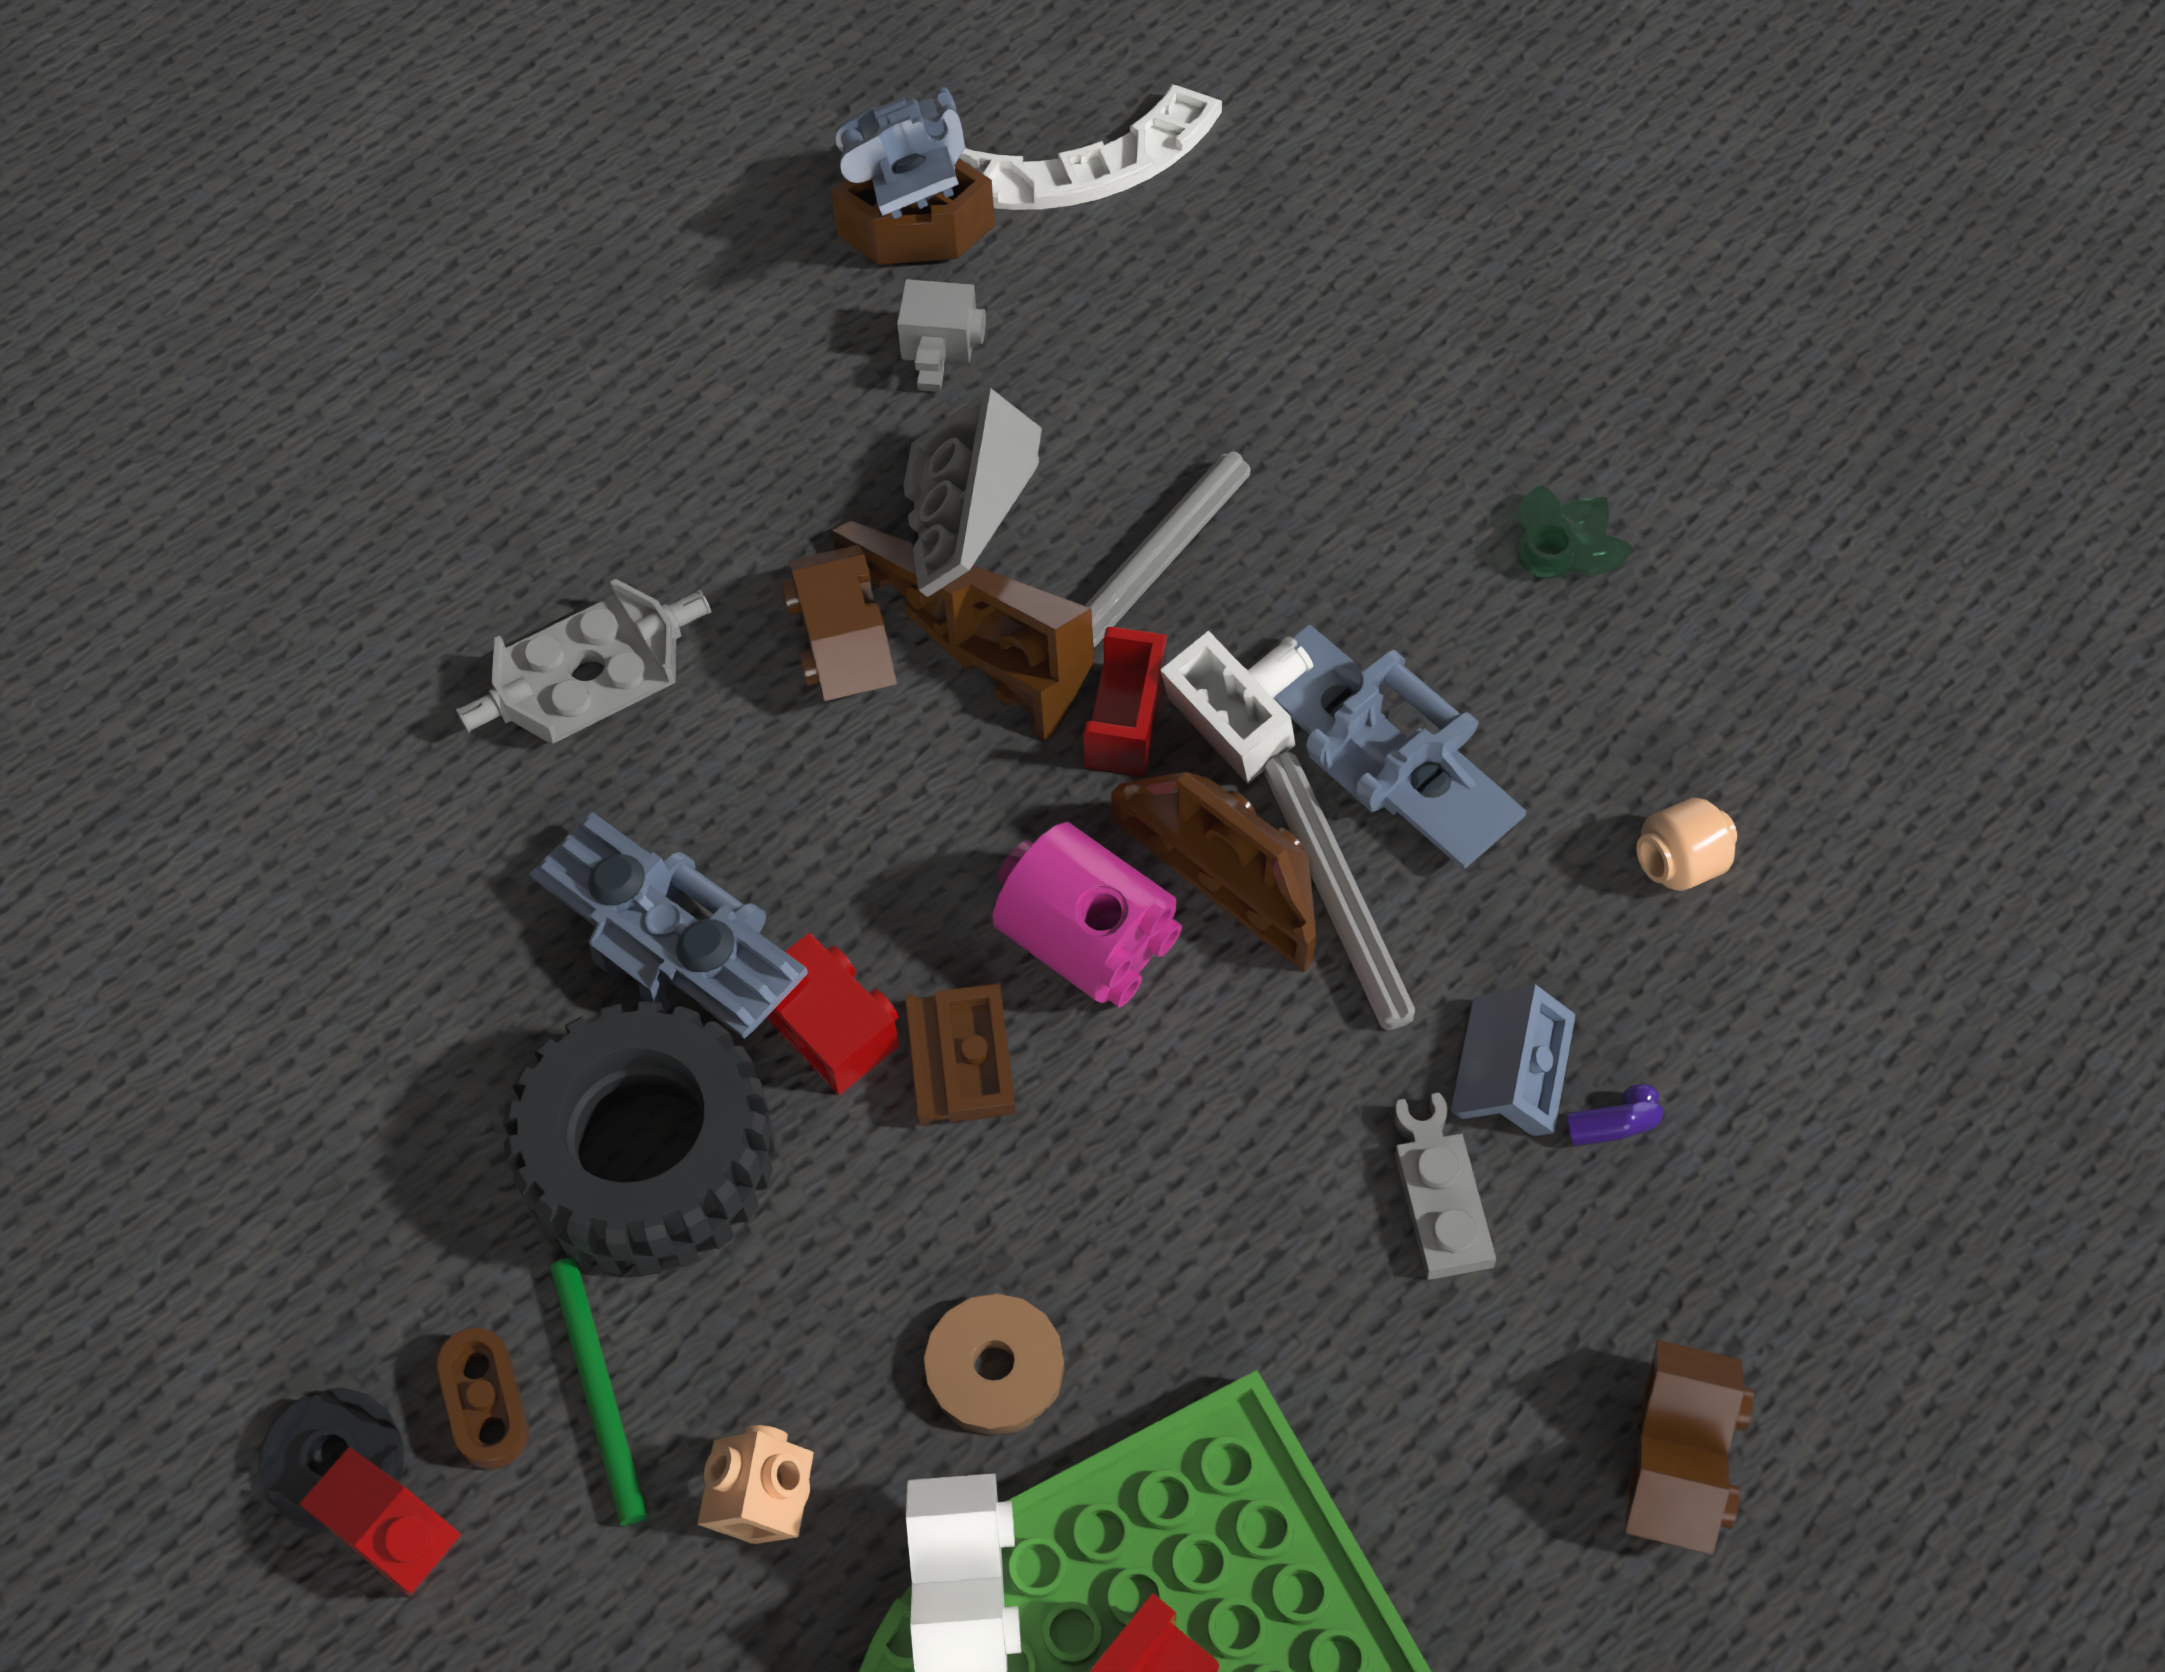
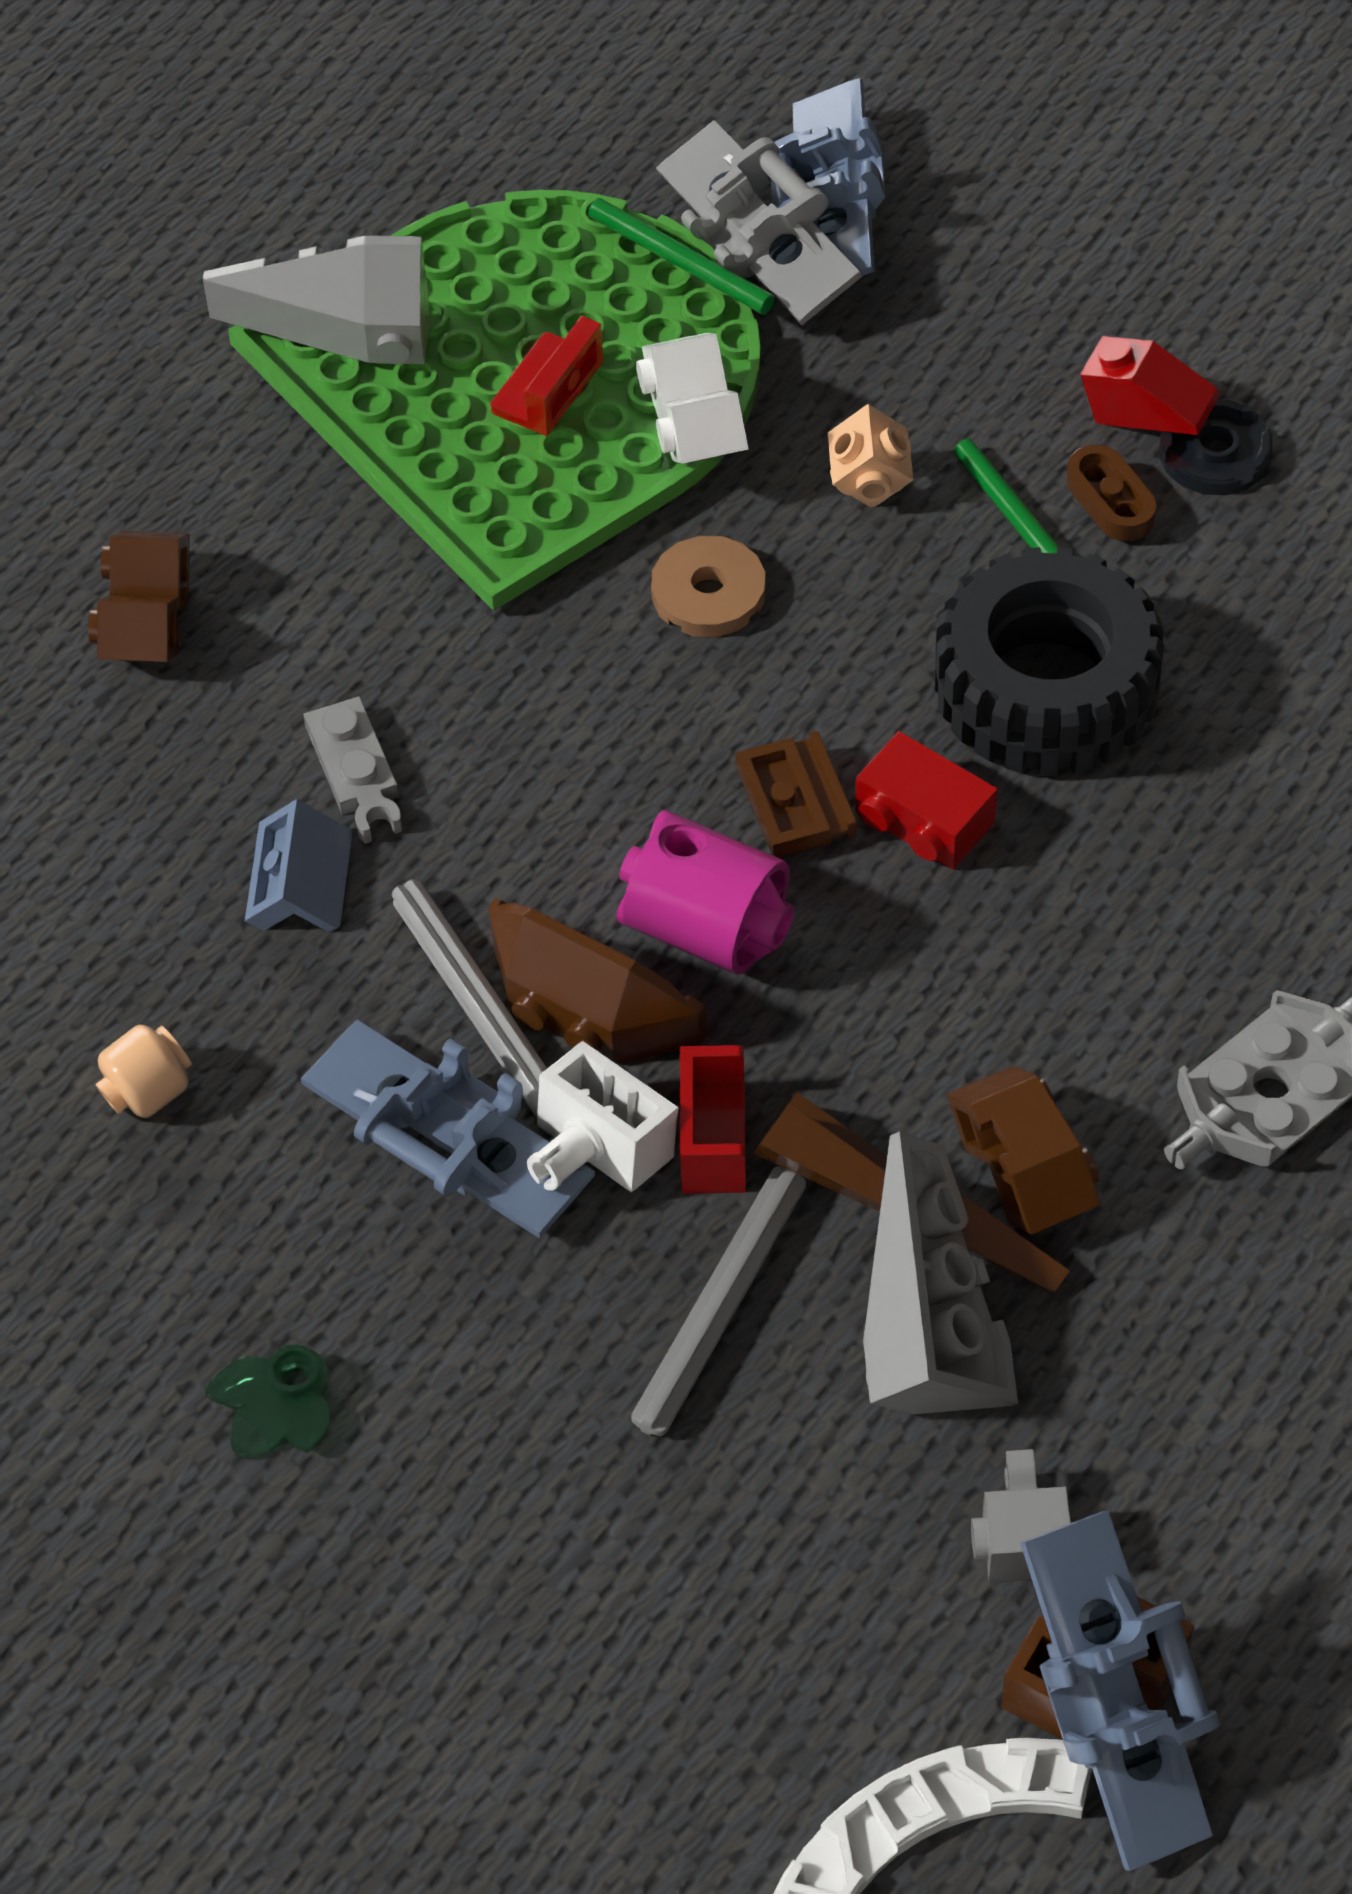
camera: 170 degrees right, 5 degrees down
(640, 930) = (1099, 817): sand blue piece -> none
(1618, 1122) = (197, 834): dark purple arm -> none

